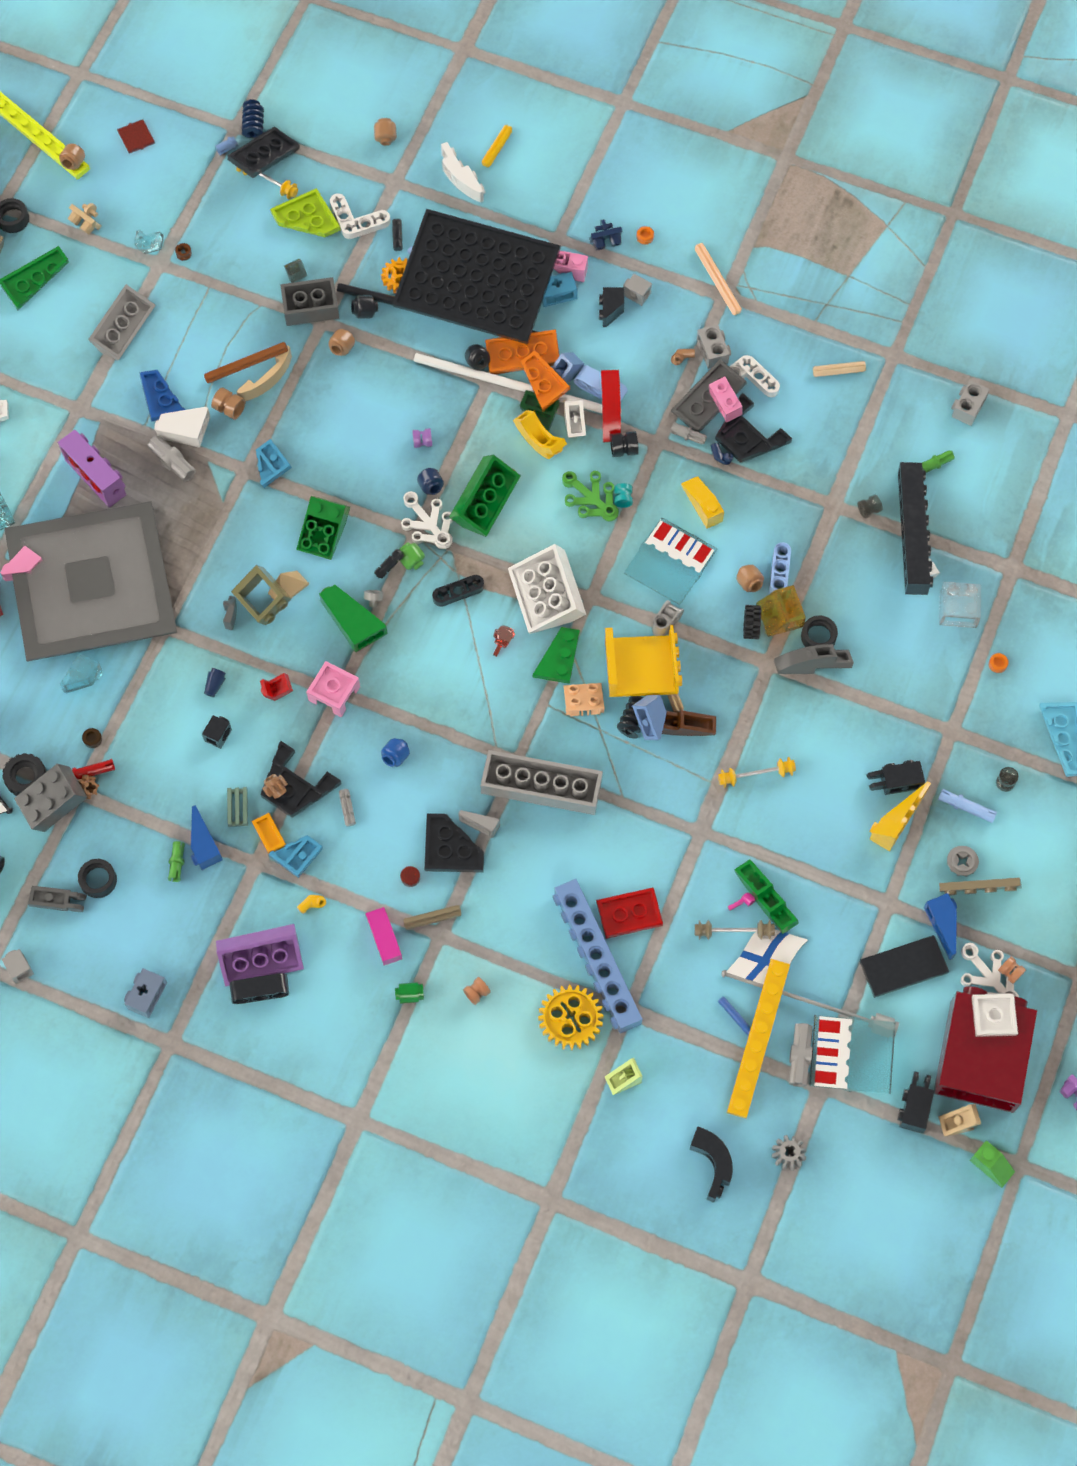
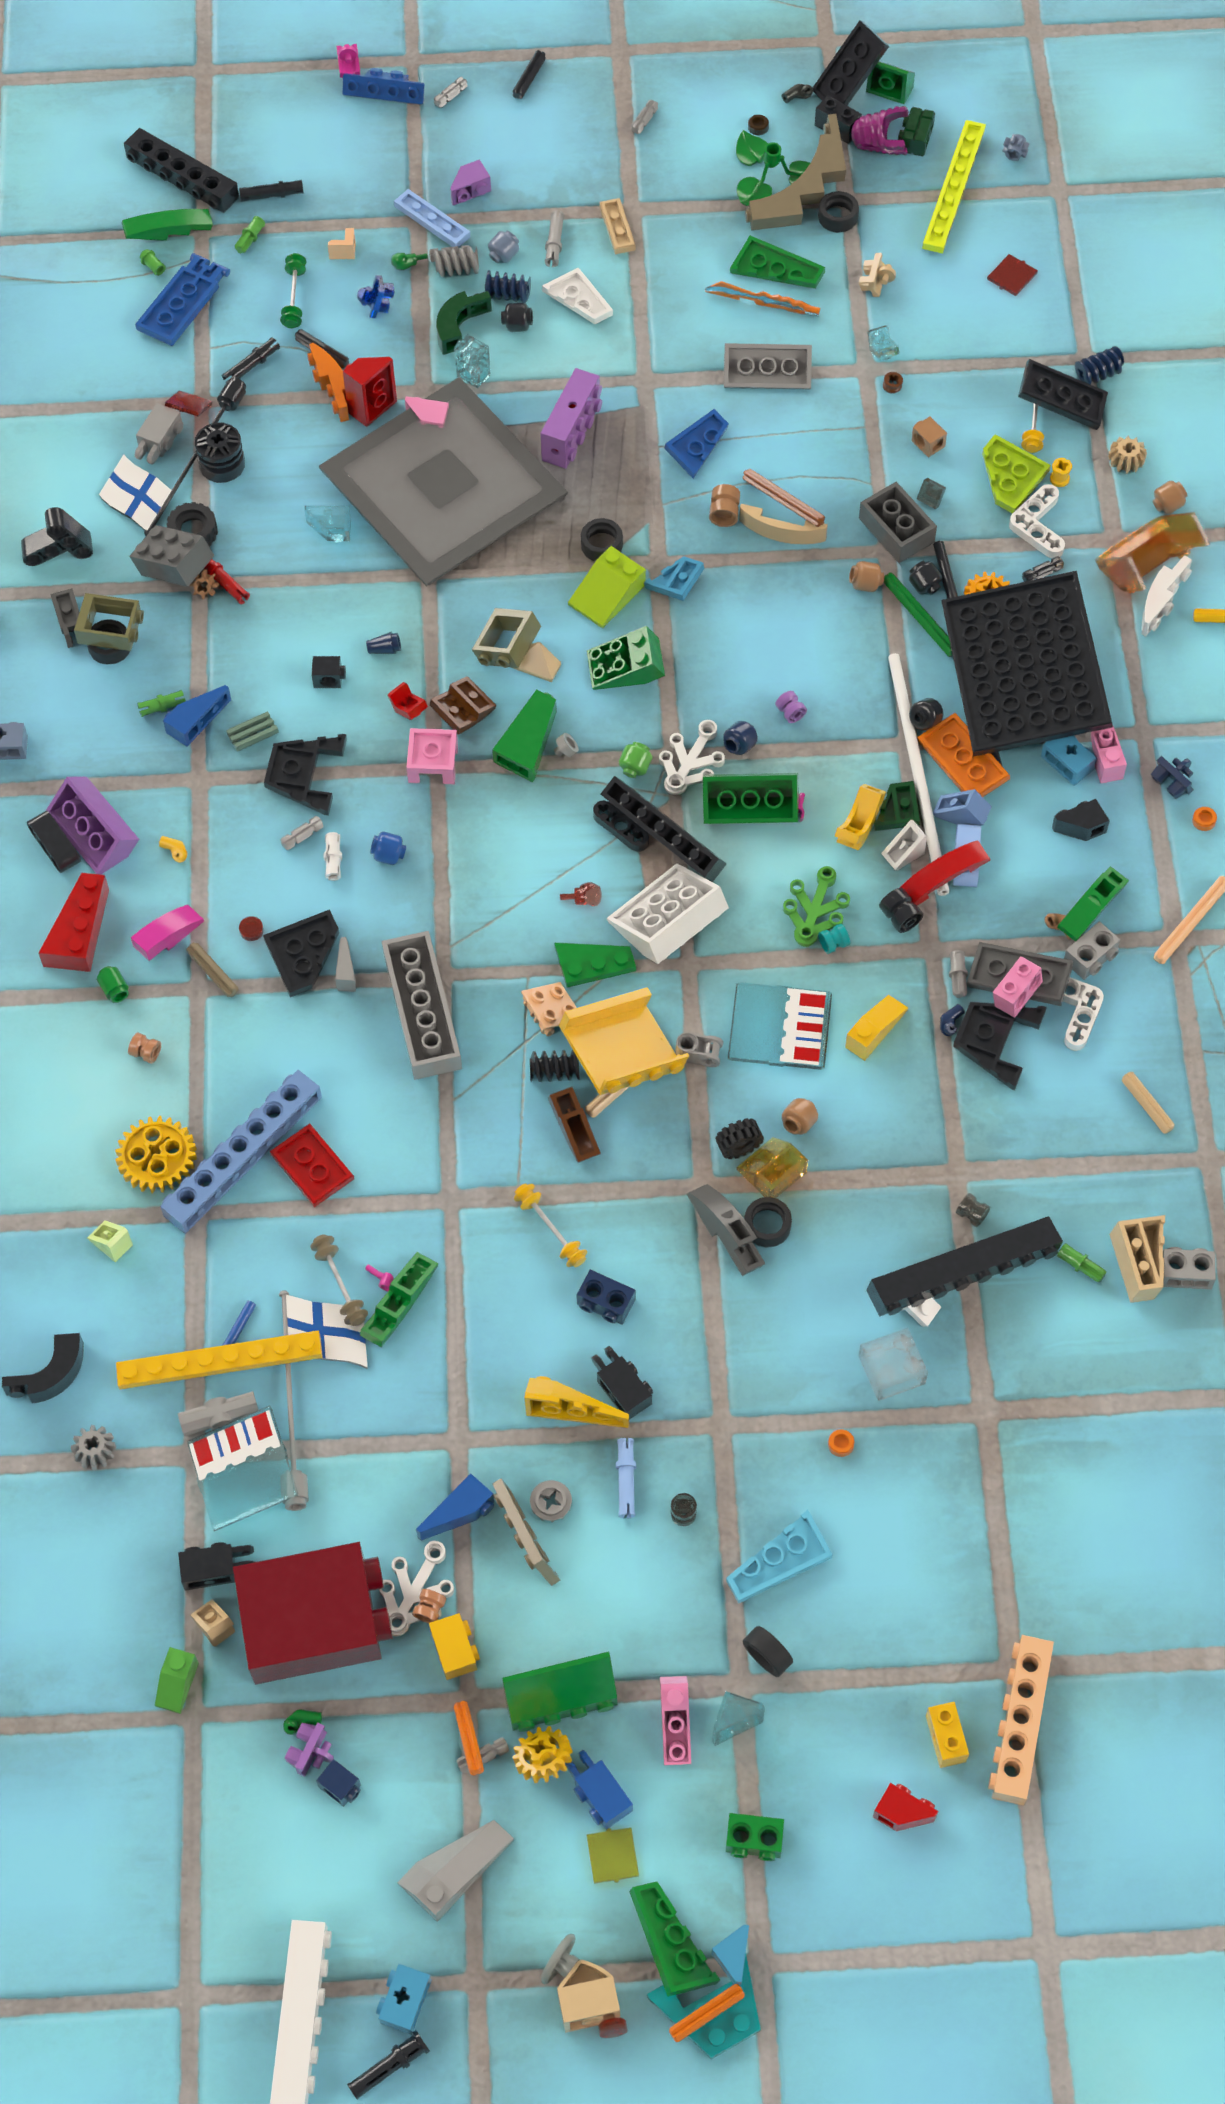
camera: 65 degrees right, 5 degrees down
(29, 79) = (1015, 147): none -> sand blue gear
(58, 298) = (762, 298): none -> orange sword
(72, 156) = (939, 225): medium nougat head -> none
(74, 858) = (110, 605): none -> olive window
(92, 738) = (265, 567): dark brown tile -> none
(171, 458) = (628, 486): light grey piece -> none
(184, 426) = (675, 480): white slope -> none
(208, 484) = (596, 526): none -> black tyre
(227, 145) = (1052, 359): medium blue pin -> none
(230, 616) = (471, 623): dark grey slope -> none
(245, 250) = (929, 436): none -> medium nougat brick
(253, 510) = (608, 587): none -> lime slope
(268, 833) = (235, 774): light orange tile -> none
(274, 786) = (284, 748): medium nougat gear -> none
(297, 651) = (462, 705): none -> reddish brown slope
(297, 855) = (222, 810): dark azure wing -> none
(329, 189) = (1060, 475): none -> yellow bush
(334, 139) = (1127, 454): none -> tan gear
(347, 998) = (77, 927): none -> red wedge
(380, 793) = (332, 856): none -> white pin
(389, 563) = (612, 741): black axle -> none
(392, 324) = (918, 612): none -> green axle
(415, 162) = (1150, 547): none -> clear orange windscreen
(481, 562) = (663, 829): none -> black brick
(544, 380) = (934, 792): orange wing -> none
(637, 289) = (1120, 839): light grey brick -> none
(650, 716) = (557, 1076): medium blue slope -> none
(682, 327) = (1092, 903): none -> green slope
(780, 562) = (836, 1136): light blue beam -> none
(825, 757) = (609, 1292): none -> dark blue brick
(904, 966) = (383, 1487): black tile -> none
(952, 425) = (1140, 1256): none -> tan wedge
(994, 1015) = (346, 1594): white tile -> none
(1046, 966) = (453, 1646): none -> yellow brick
(1053, 1092) = (294, 1721): none -> green arm

